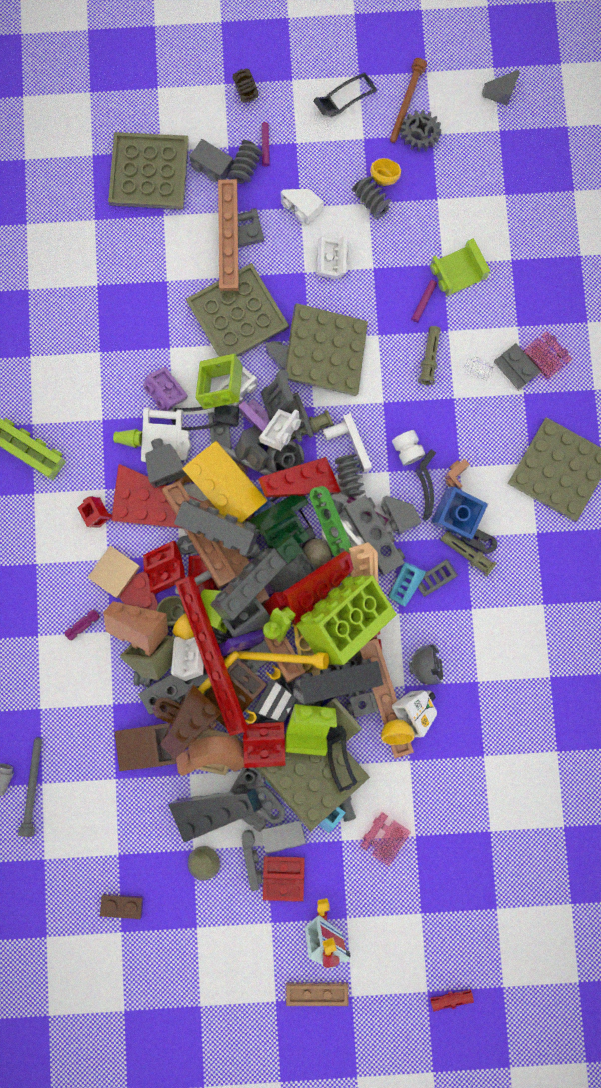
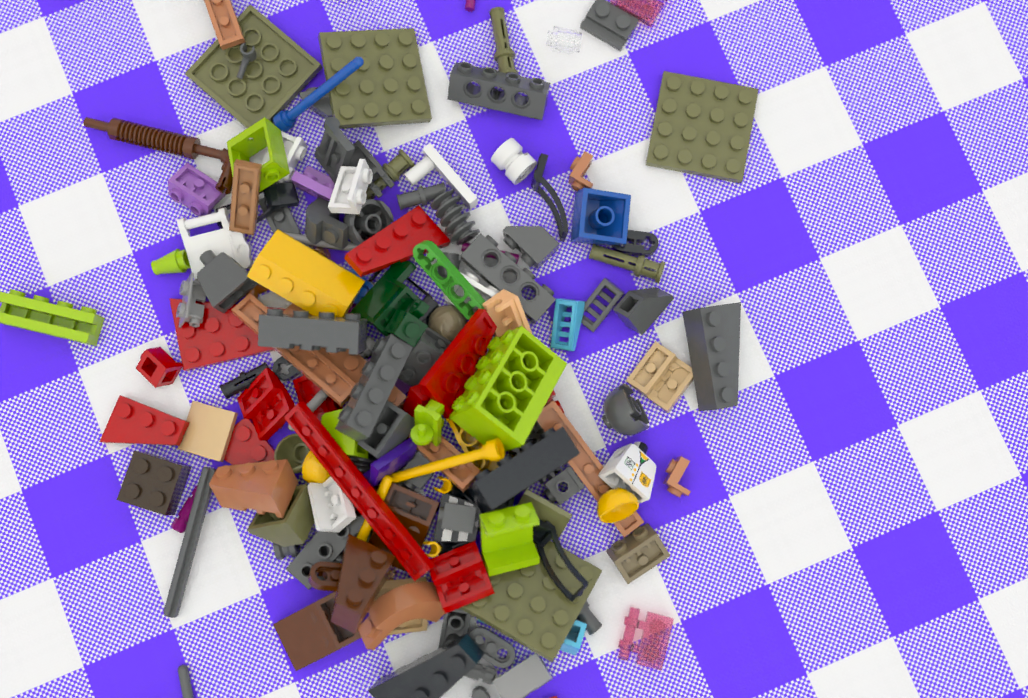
camera: 20 degrees left, 0 degrees up
(62, 597) = (154, 483): none -> dark brown brick
(68, 550) = (141, 424): none -> red wing
(73, 650) = (189, 543): none -> dark grey axle
(129, 477) = (188, 310): none -> light grey hinge
(140, 546) = (230, 388): none -> black pin
(155, 346) = (166, 142): none -> reddish brown piece
(200, 408) = (245, 197): none -> medium nougat tile
(235, 303) = (247, 57): none -> dark grey hand
(249, 358) = (285, 119): none -> blue piece
(276, 700) = (457, 517): none -> dark grey brick
(330, 450) = (420, 196): none -> dark grey pin
(401, 773) = (638, 552): none -> dark tan bracket
(418, 399) = (489, 97): none -> dark grey brick
(450, 722) = (675, 471): none -> nougat bracket
(464, 648) = (661, 377): none -> tan slope
(467, 591) = (642, 307): none -> dark grey slope
(510, 645) = (714, 354): none -> dark grey wedge

